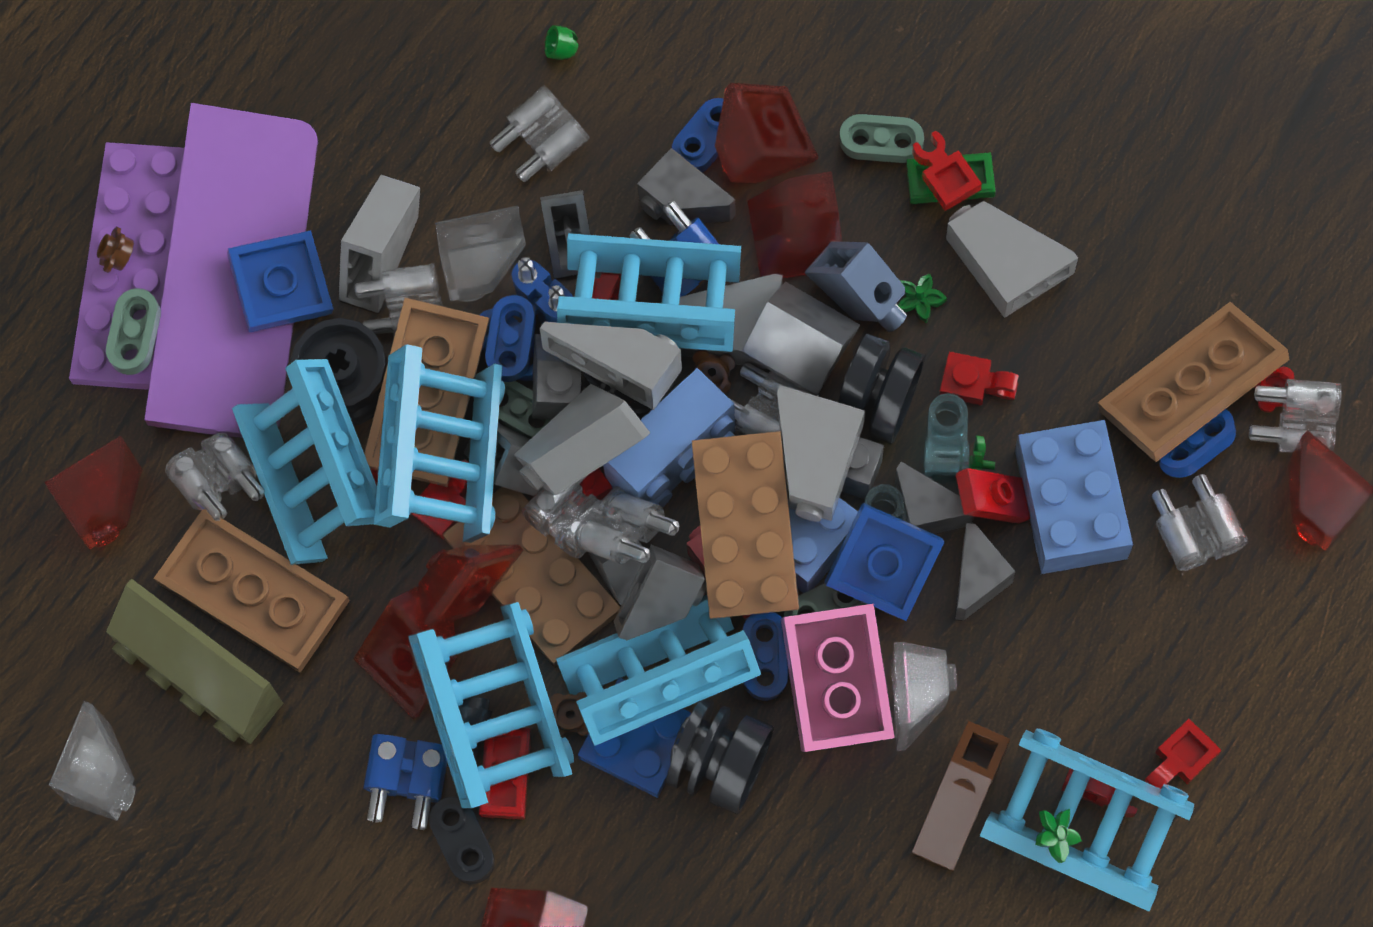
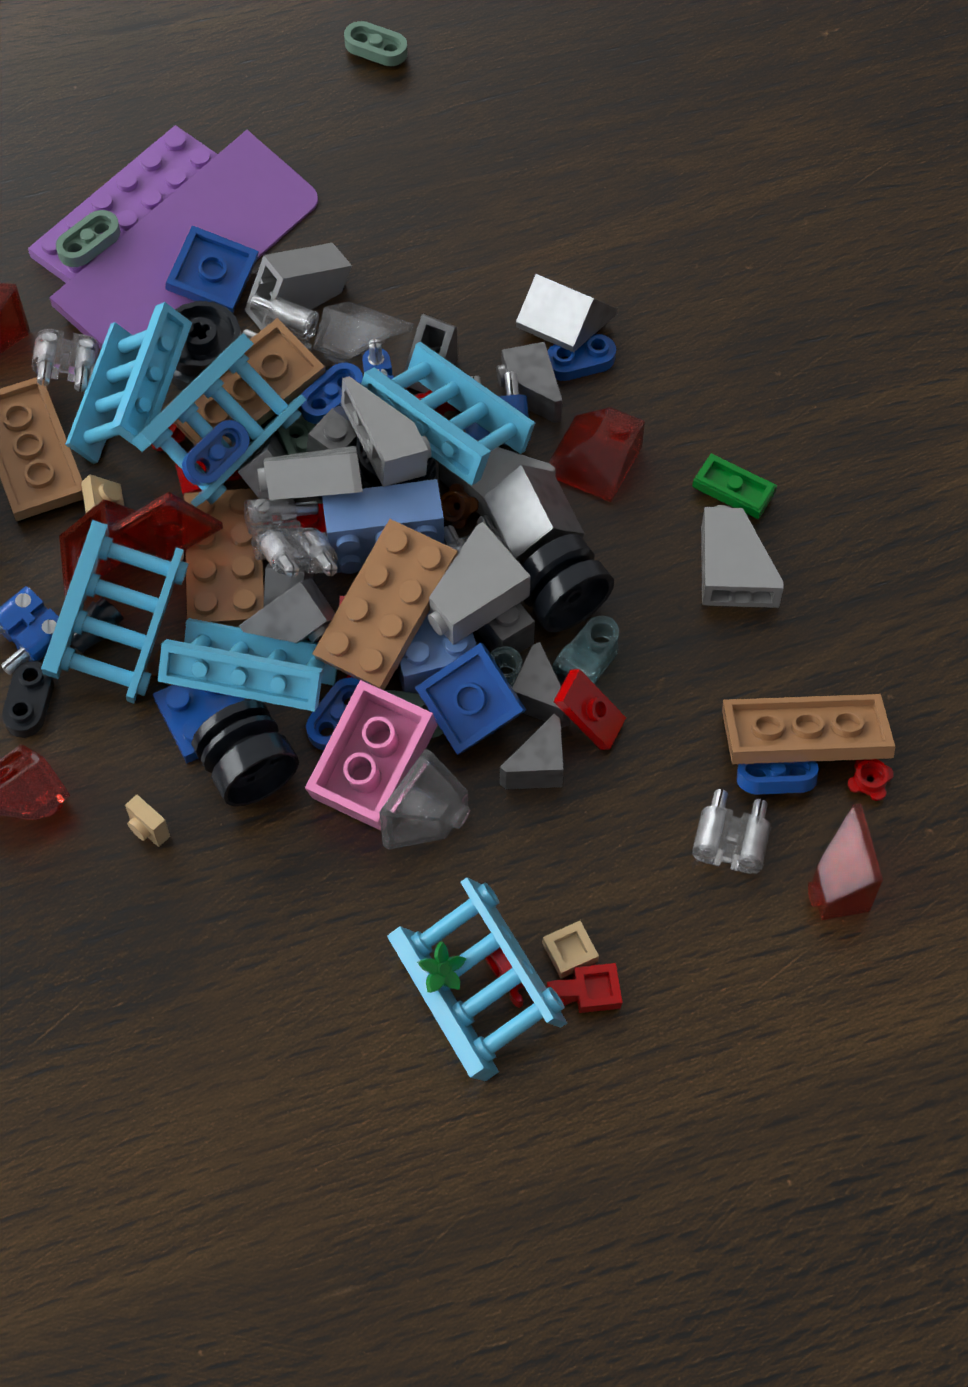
camera: 30 degrees right, 10 degrees down
(114, 250) = (118, 183): reddish brown plate -> none
(369, 592) = (97, 489): none -> tan plate
(469, 485) = (214, 454): none -> blue plate
(508, 797) = (83, 689): red plate -> none
(545, 128) = (470, 286): clear piece -> none
(560, 43) = (528, 241): green hinge -> none
(661, 103) = (562, 314): none -> slope
(674, 881) = (146, 821): none -> tan plate
(761, 133) = (619, 373): clear red slope -> none
(859, 283) = (598, 497): sand blue torso -> none
(881, 136) = (707, 430): sand green plate -> none
(921, 297) = (649, 552): green plant -> none
(947, 176) = (729, 475): red plate -> none
(961, 795) = (400, 900): slope -> none
(971, 379) = (644, 627): red plate -> none
(976, 460) = (601, 679): green plant -> none
(1073, 497) = (650, 751): medium blue brick -> none
(1139, 732) = (570, 949): none -> tan plate
(1305, 407) = (882, 800): clear piece -> none

